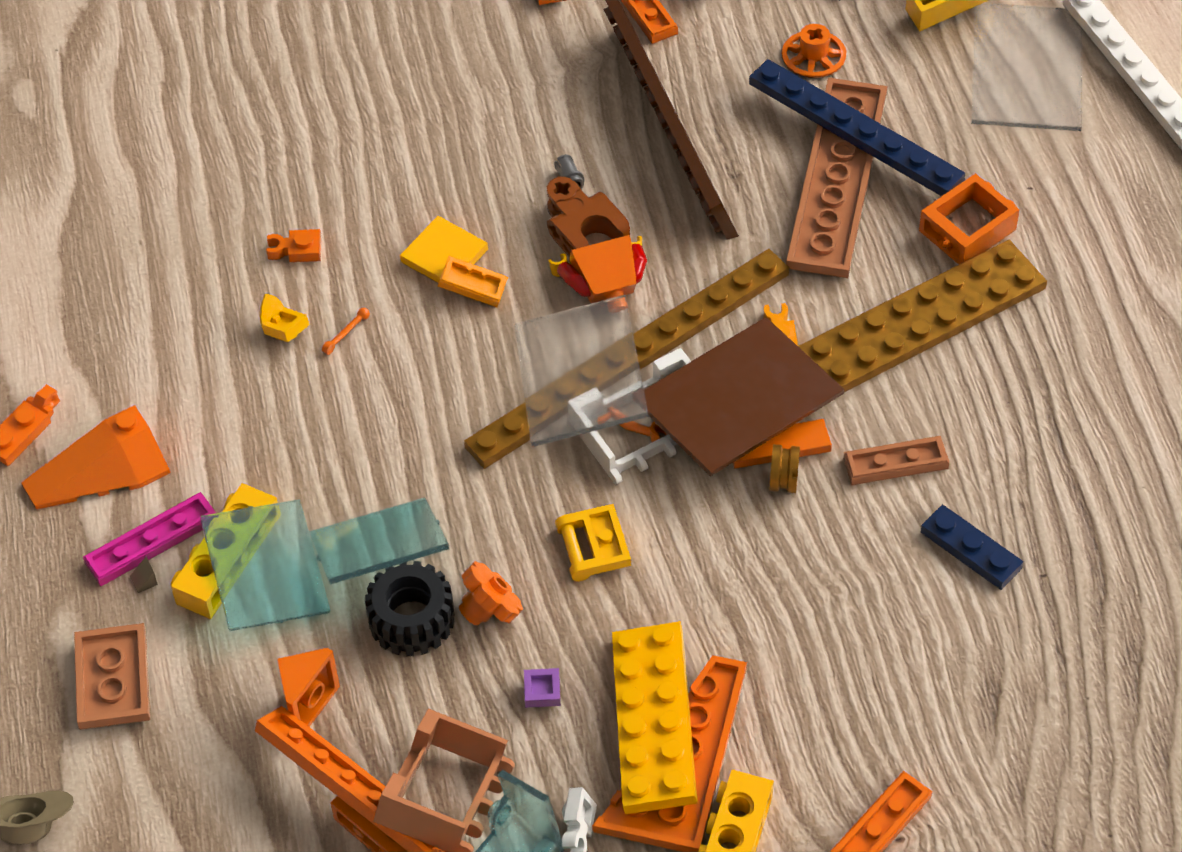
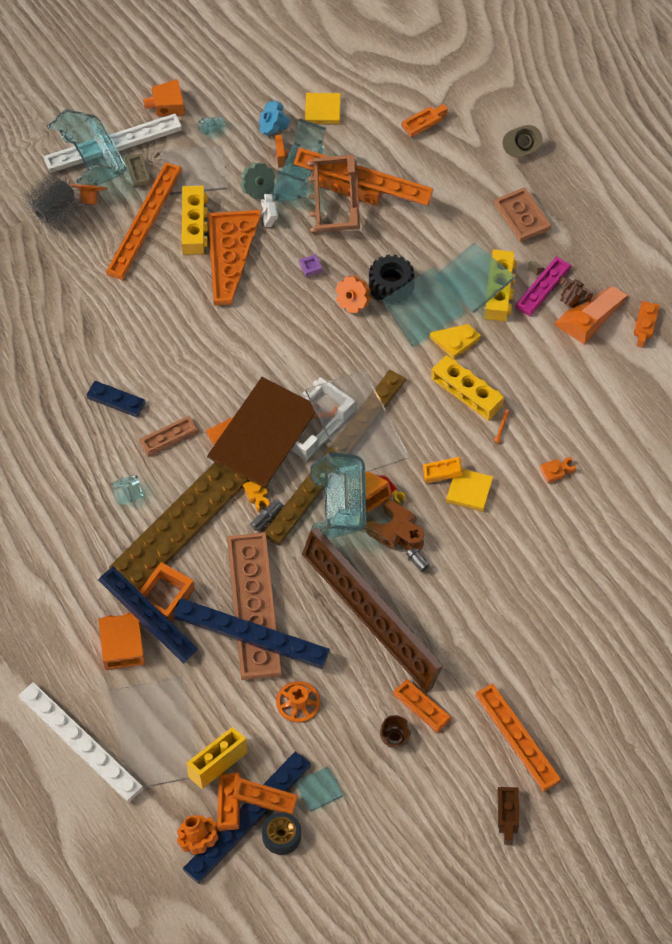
camera: 160 degrees right, 5 degrees up
(106, 493) = (573, 291): none -> reddish brown plant
(280, 321) = (538, 415): yellow plate -> none
(308, 682) = (424, 223): orange slope -> none
(346, 486) = (455, 339): none -> yellow wing
(362, 374) = (471, 396): none -> yellow brick
(604, 539) = (310, 347): yellow plate -> none
(653, 718) = (250, 262): yellow plate -> none
(654, 241) = (344, 493): none -> clear light blue windscreen
(774, 290) = (266, 515): none -> flat silver axle
(784, 468) = (226, 403): pearl gold wheel -> none
(989, 384) = (127, 489): none -> clear light blue panel
(1007, 176) = (148, 614): none -> dark blue plate
(1051, 174) = (121, 641): none -> orange brick

